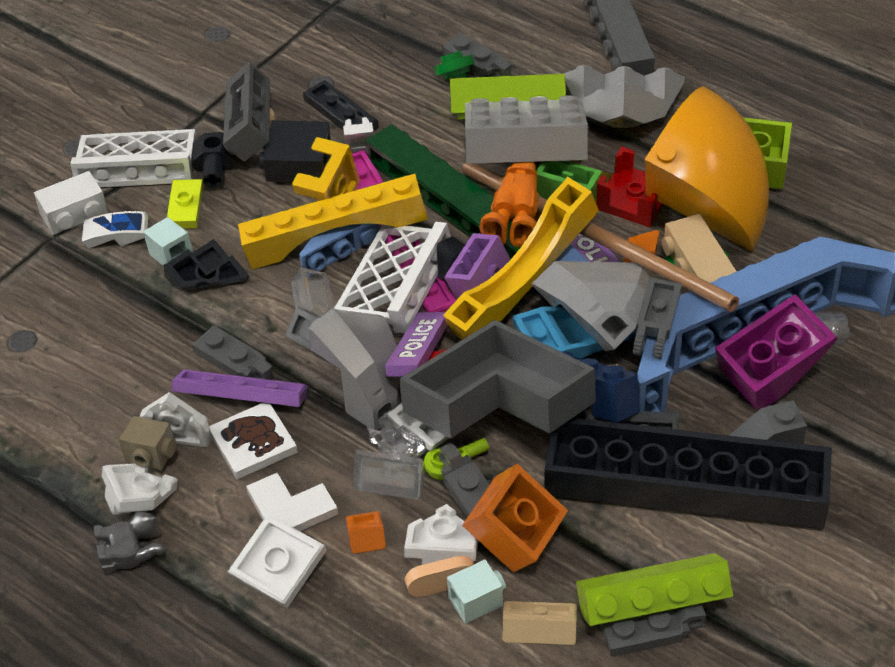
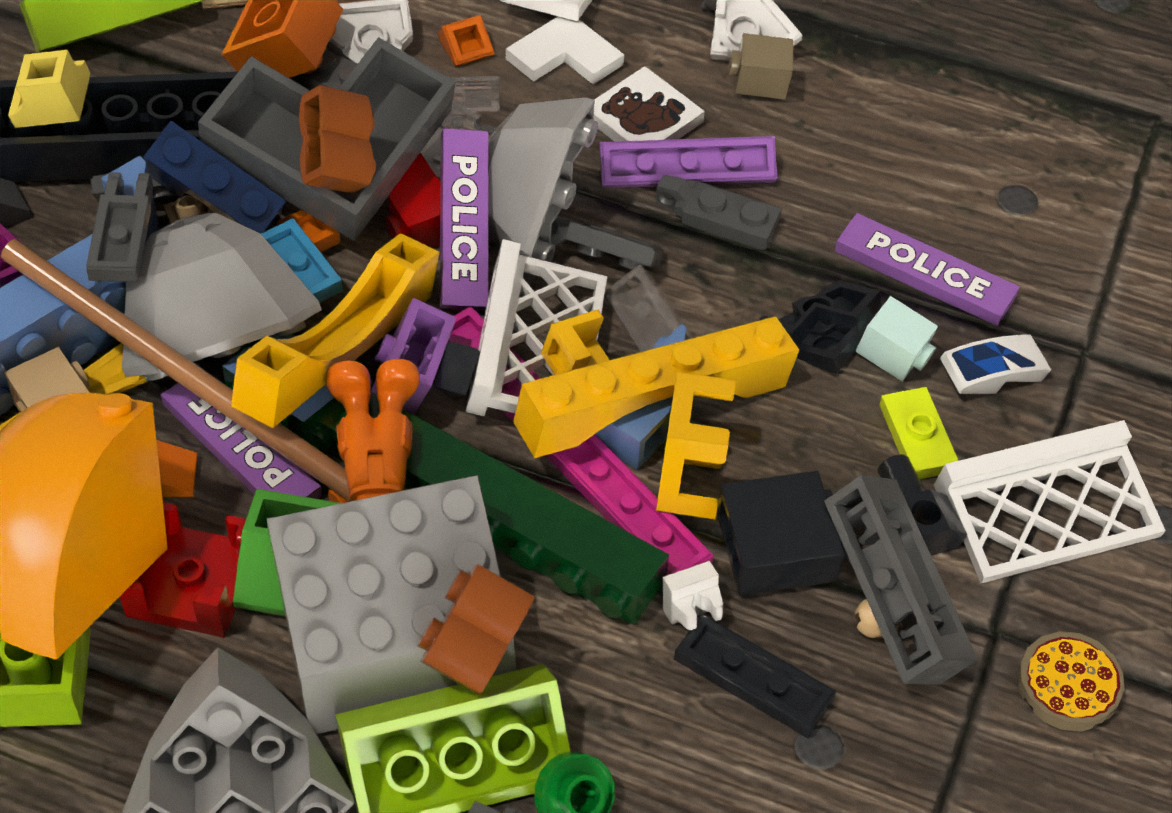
camera: 160 degrees right, 5 degrees up
(70, 202) = (1087, 385): white brick -> none
(118, 297) = (927, 269): none -> medium lavender tile
(180, 83) = (1070, 681): none -> tile
(187, 424) = (744, 93): white plate -> none
(375, 249) = (573, 343): none -> yellow panel
(485, 82) = (476, 627): none -> dark orange brick
(498, 337) = (336, 139): none -> dark orange brick
(705, 448) = (49, 89): none -> light yellow brick

